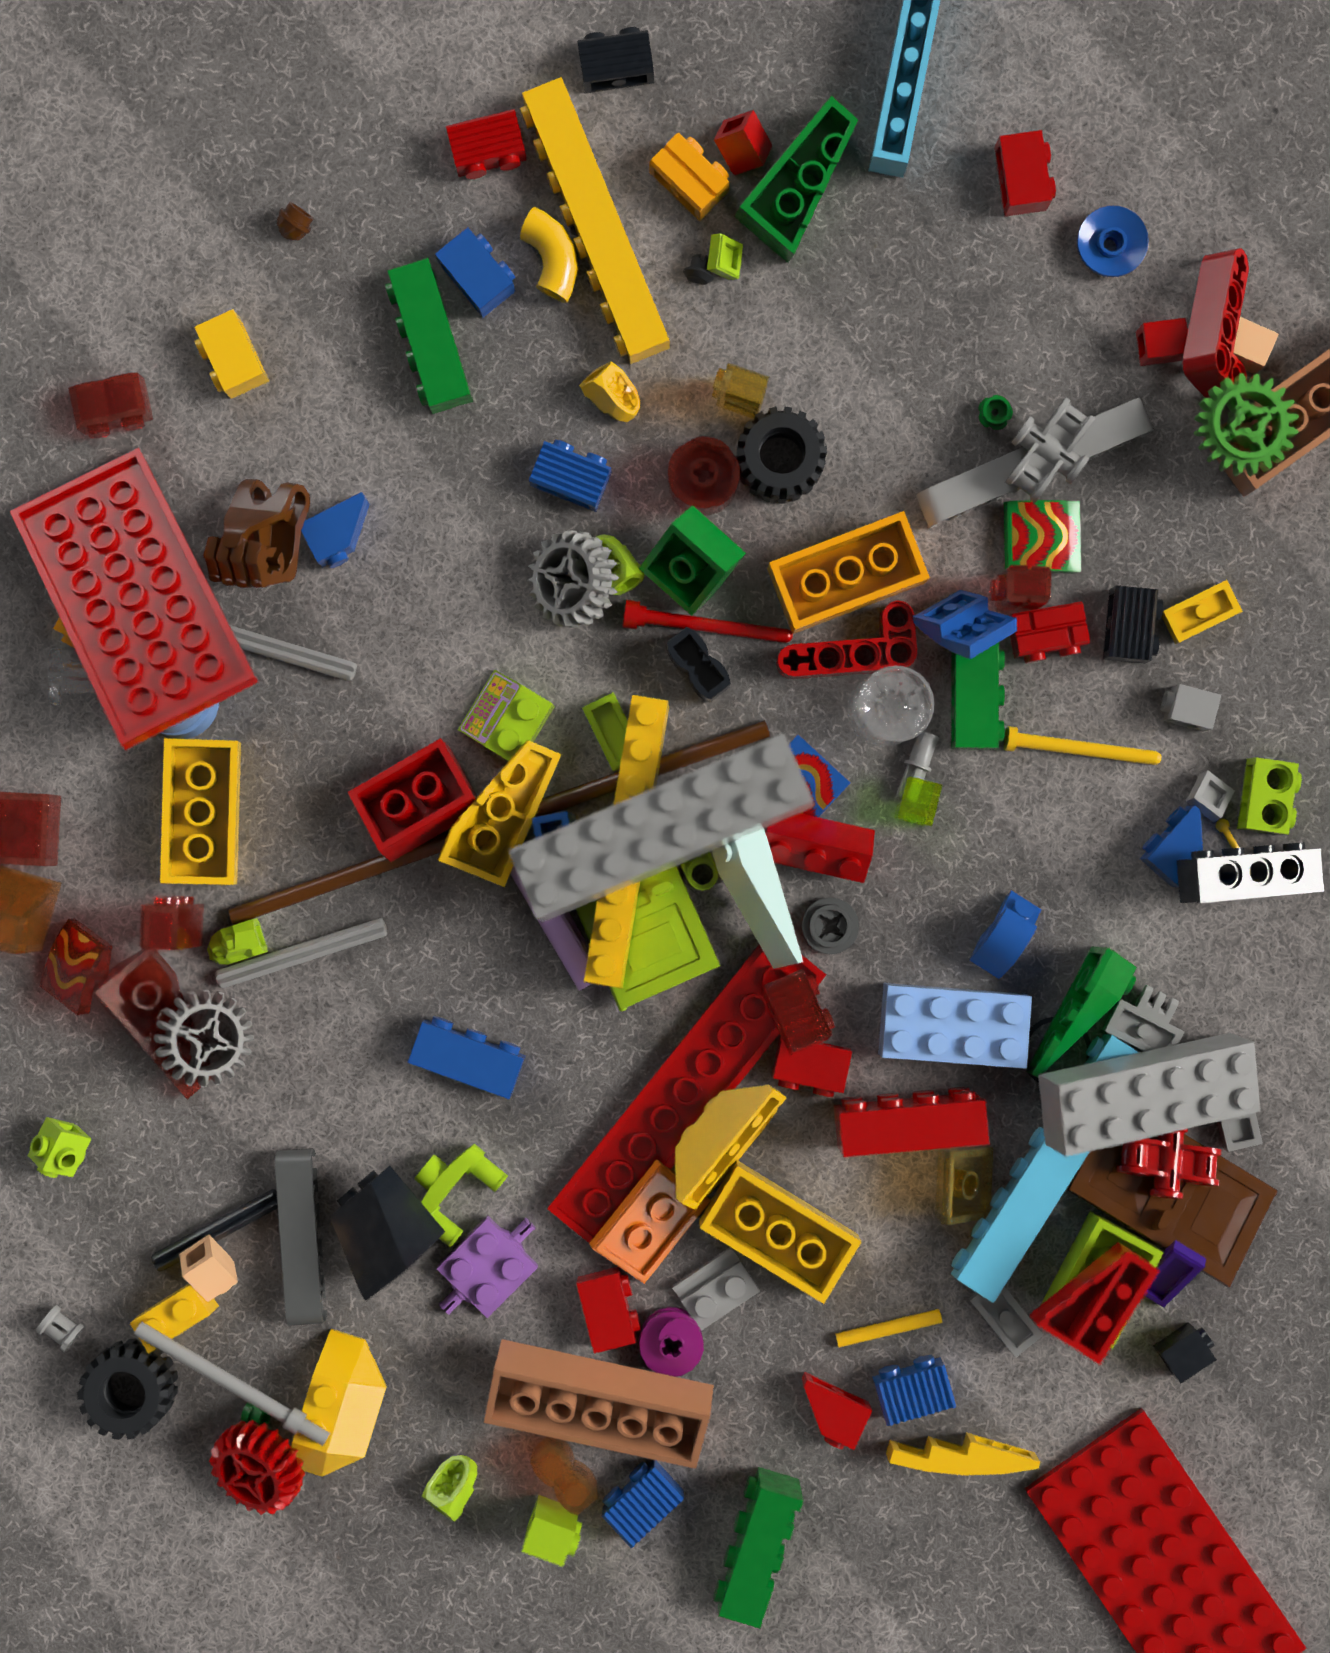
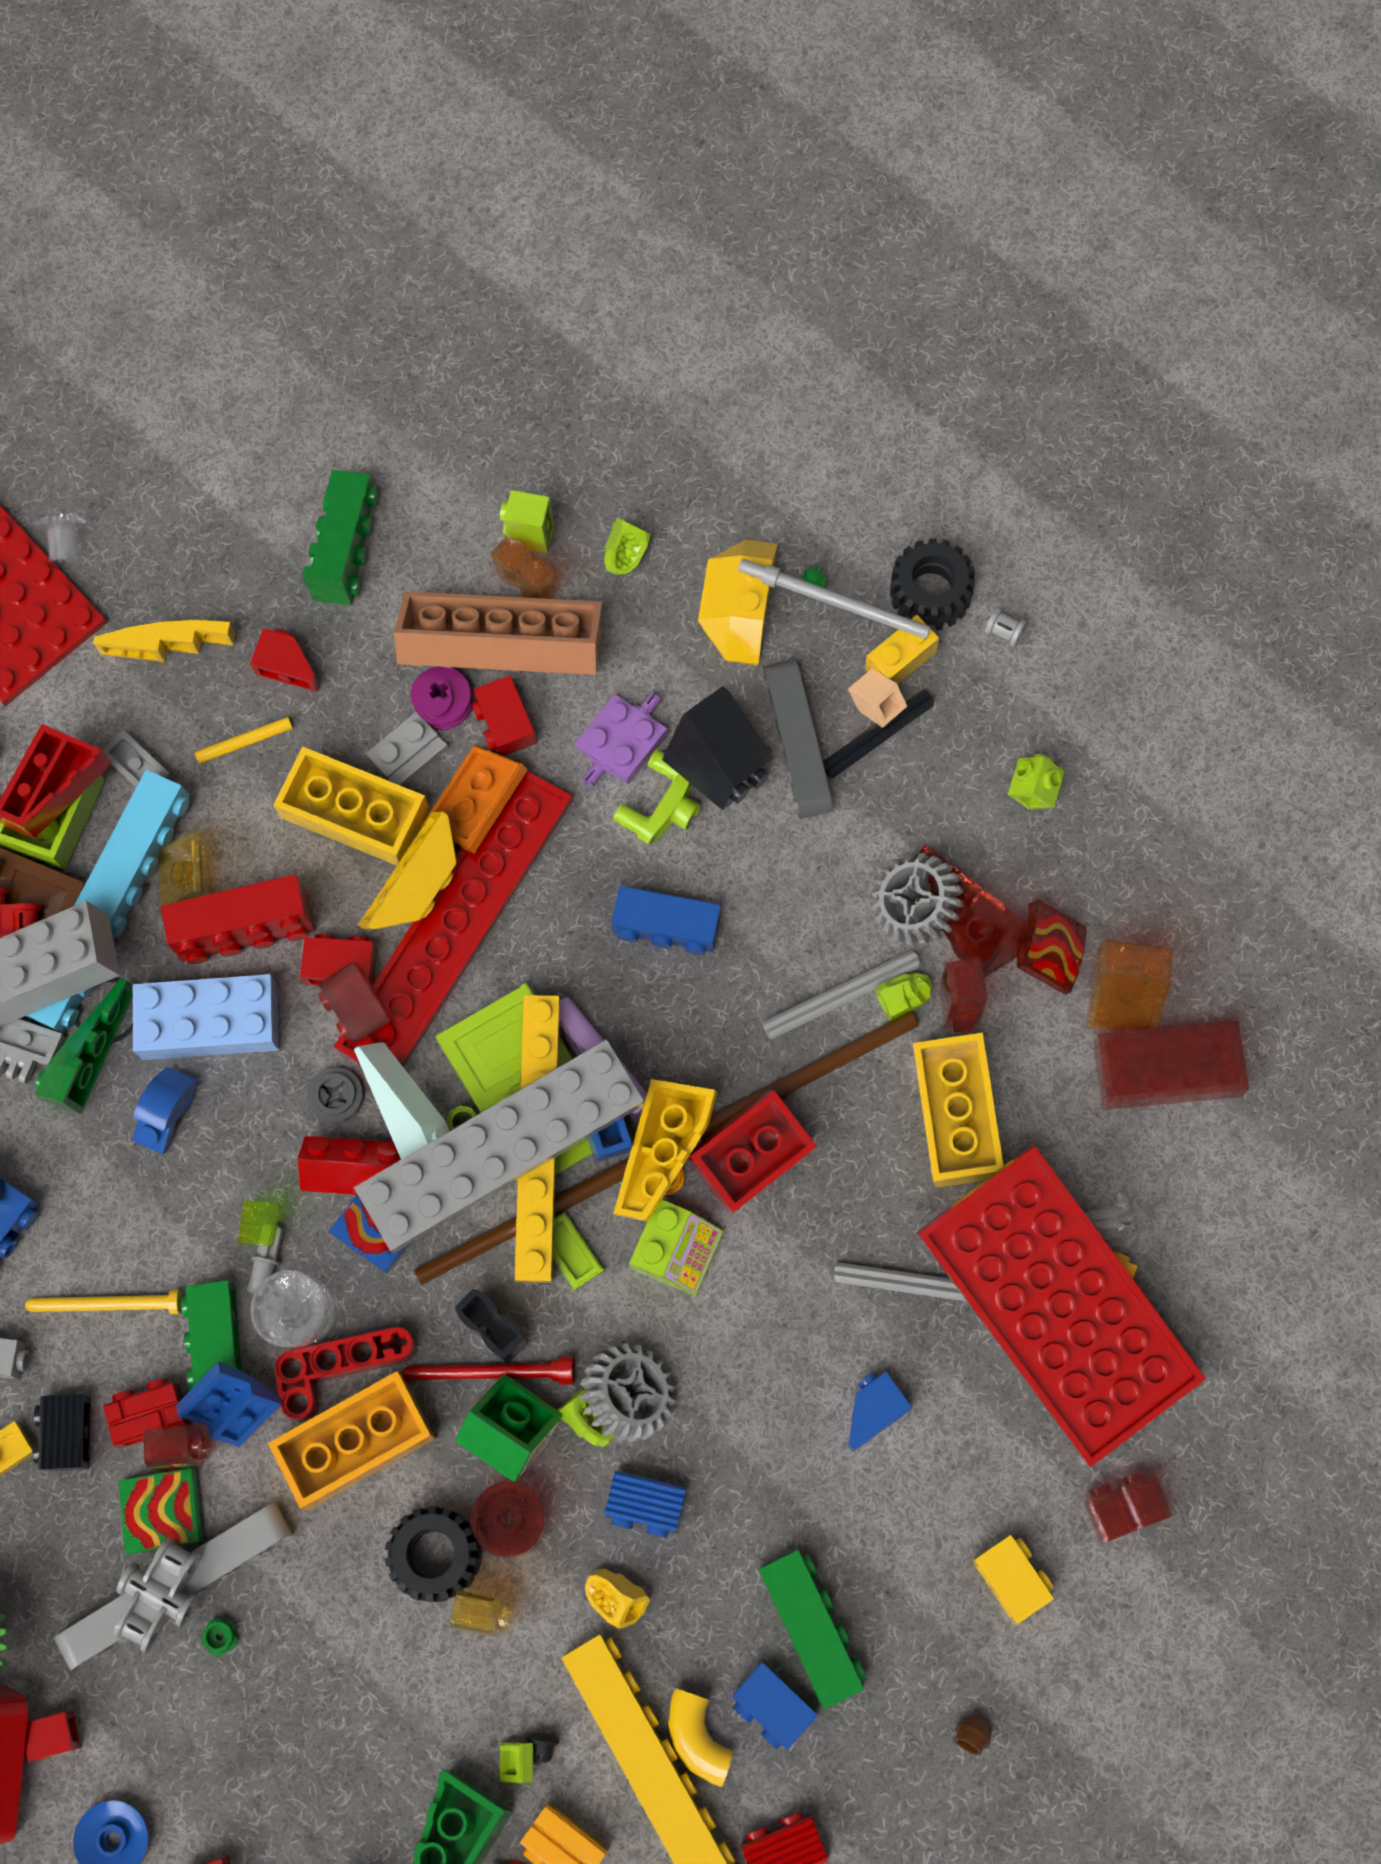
camera: 175 degrees right, 15 degrees down
(257, 1467) = (801, 535): red gear -> none
(259, 536) = (945, 1387): reddish brown piece -> none
(641, 1502) = (451, 558): blue brick -> none
(913, 1390) = (214, 688): blue brick -> none
(1065, 1598) = (62, 534): none -> clear gear

